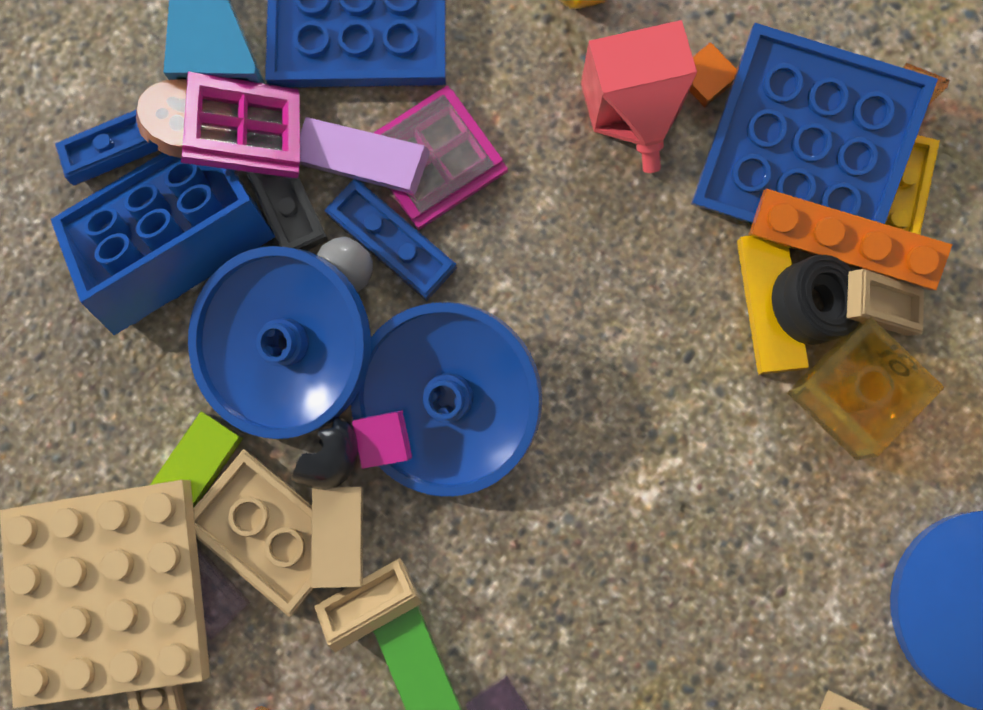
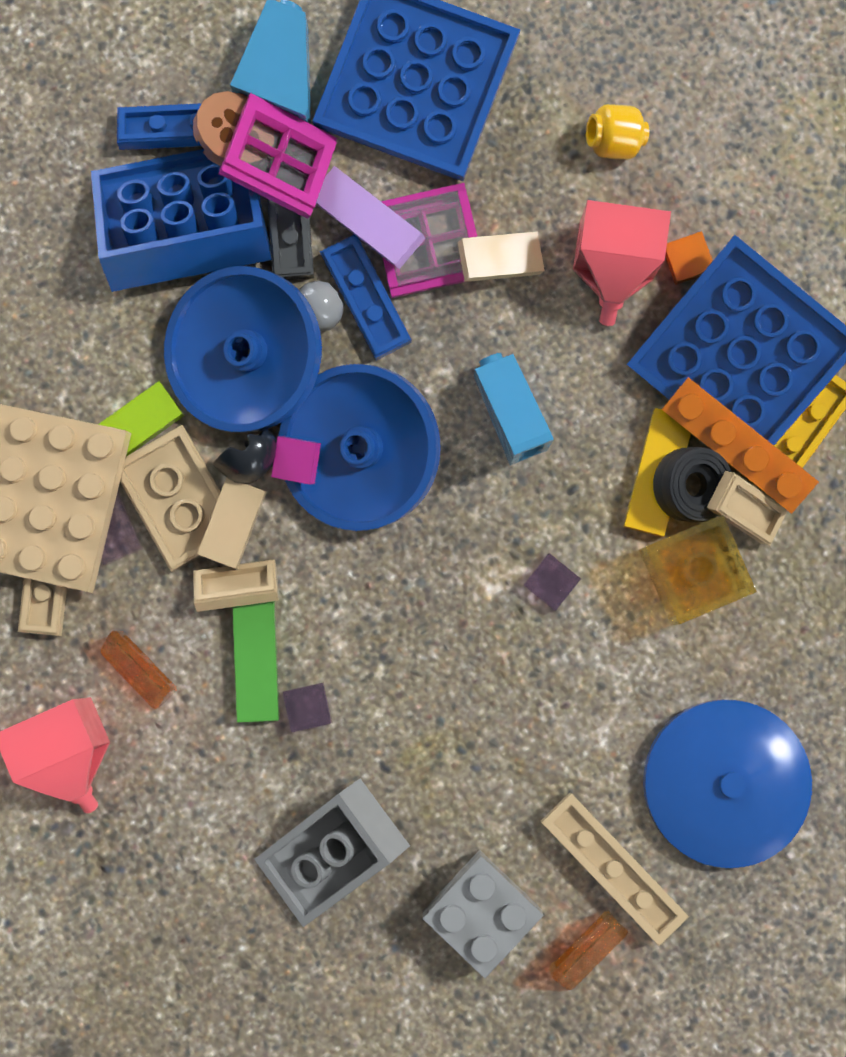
camera: 20 degrees right, 5 degrees up
(515, 143) = (501, 256): none -> tile
(594, 293) = (512, 408): none -> dark azure slope
(709, 463) = (552, 582): none -> clear purple tile

